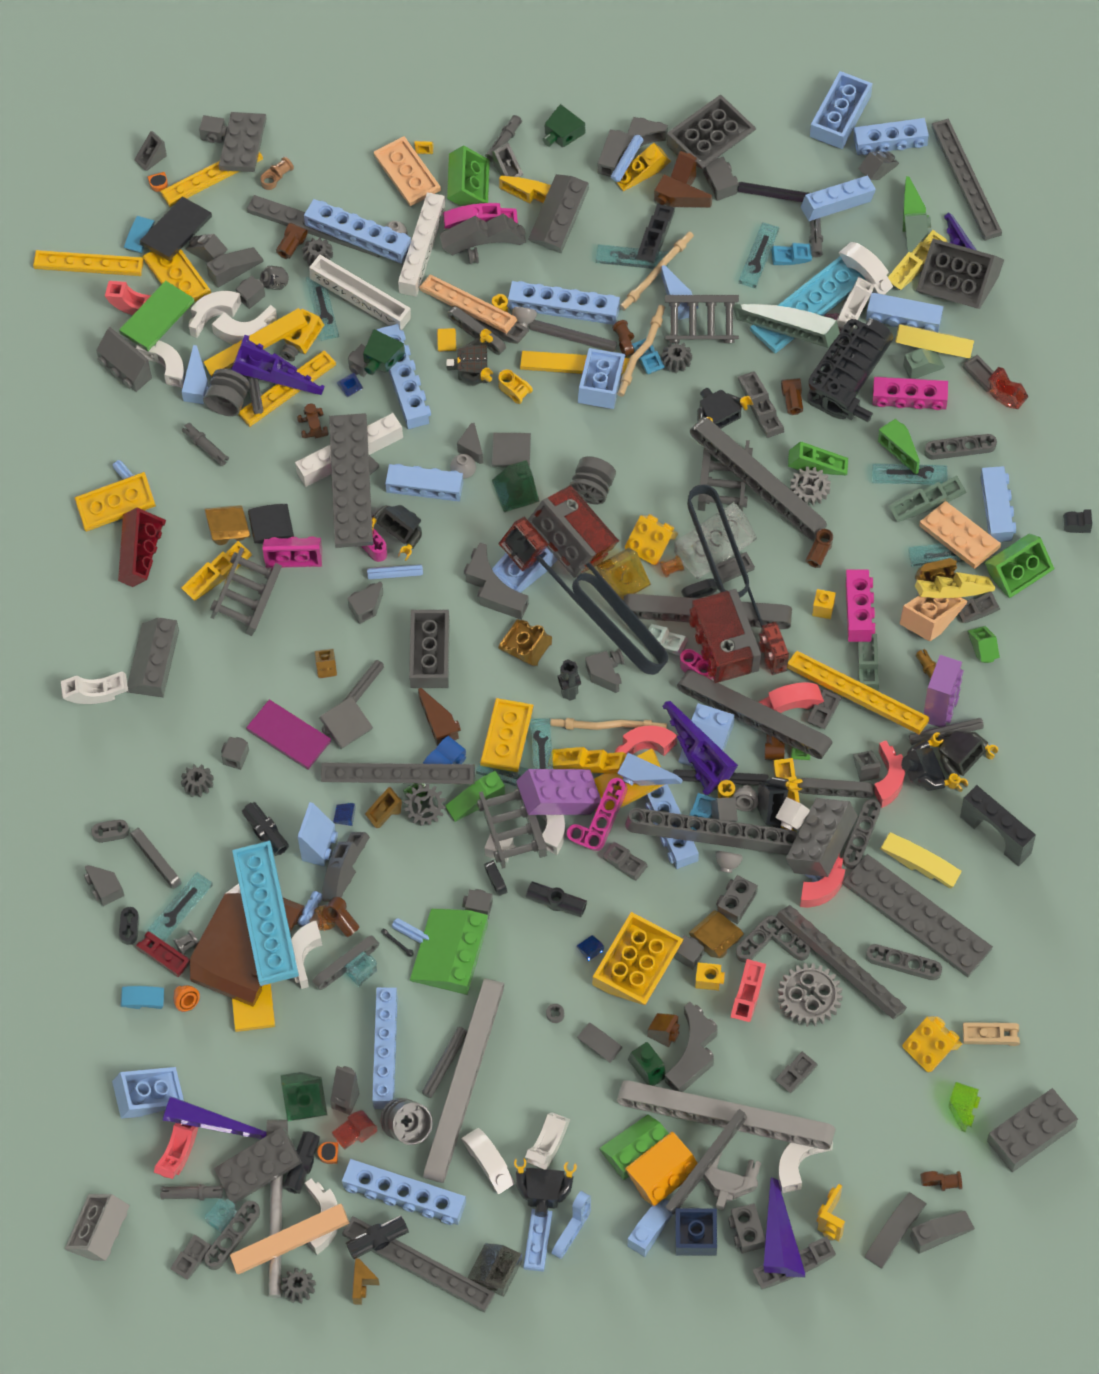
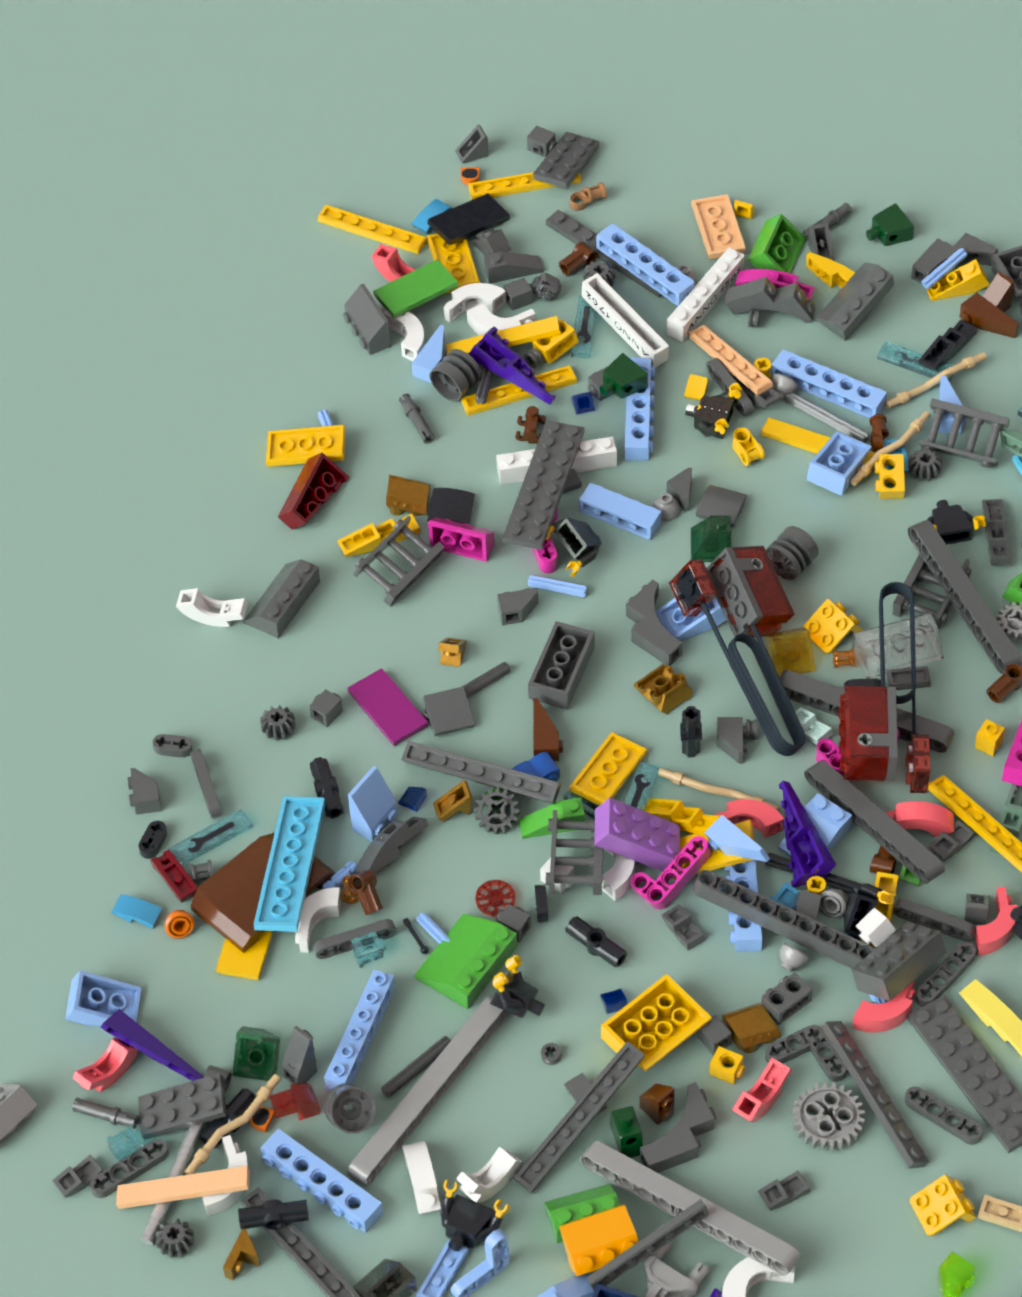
camera: 20 degrees right, 10 degrees down
(294, 1204) = (202, 1155): none -> tan bar
(452, 885) = (494, 897): none -> clear red wheel
(505, 970) = (514, 993): none -> black torso
(604, 1064) = (579, 1117): none -> dark grey plate
(656, 377) = (893, 476): none -> yellow brick

